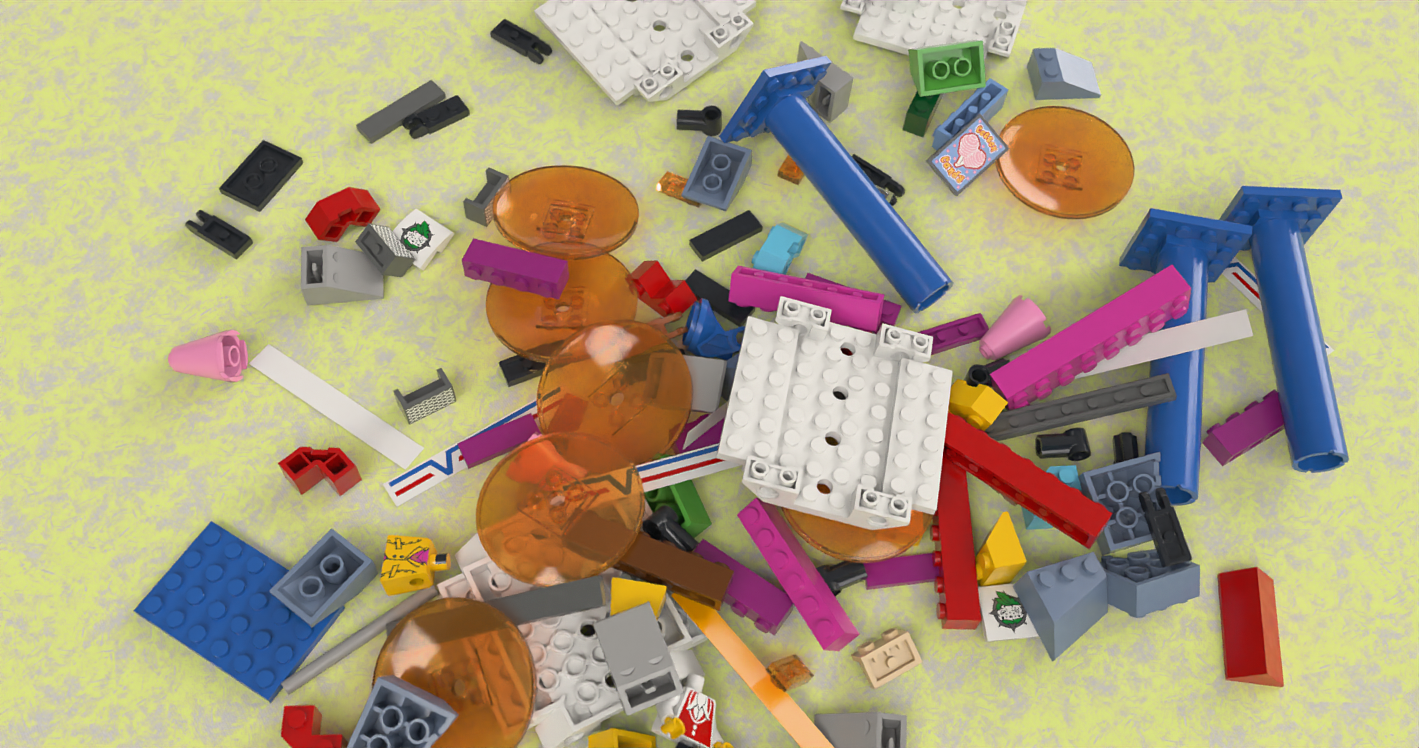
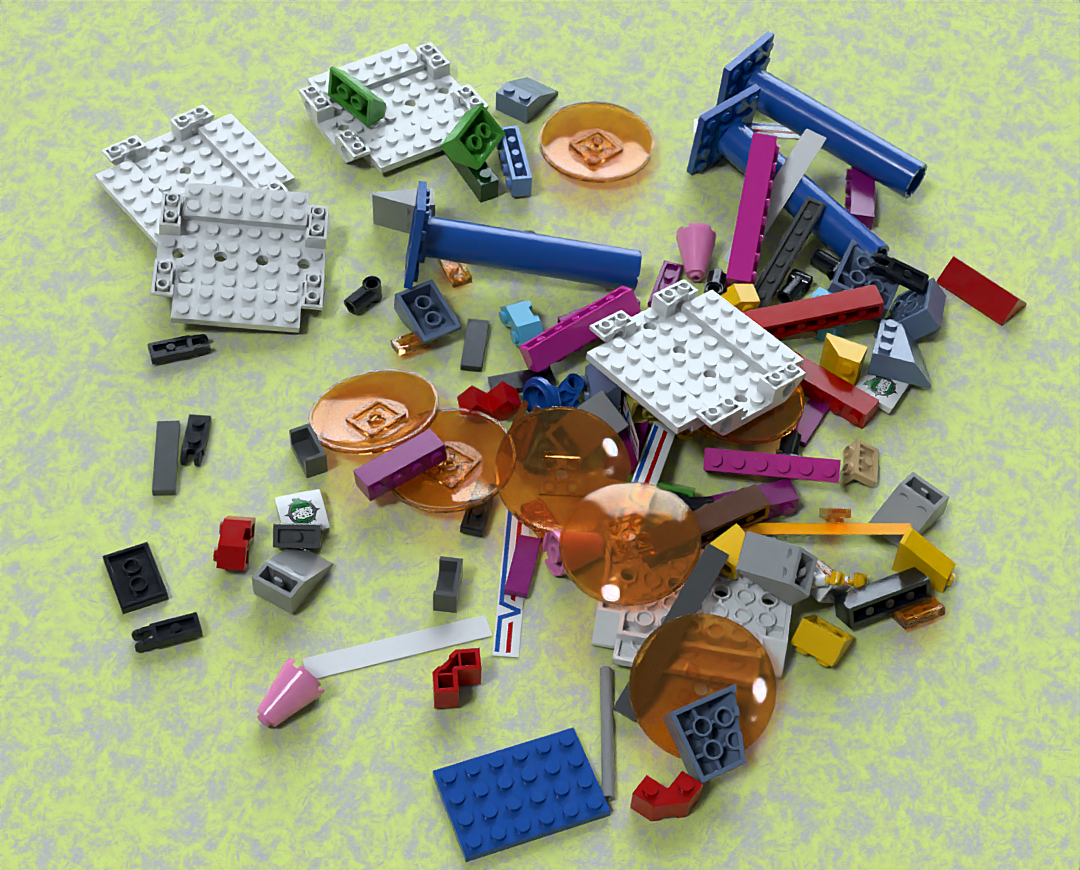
camera: 50 degrees left, 10 degrees down
(325, 578) = (550, 717): sand blue slope -> none
(411, 564) = (580, 666): yellow torso -> none
(967, 154) = (546, 180): tile -> none

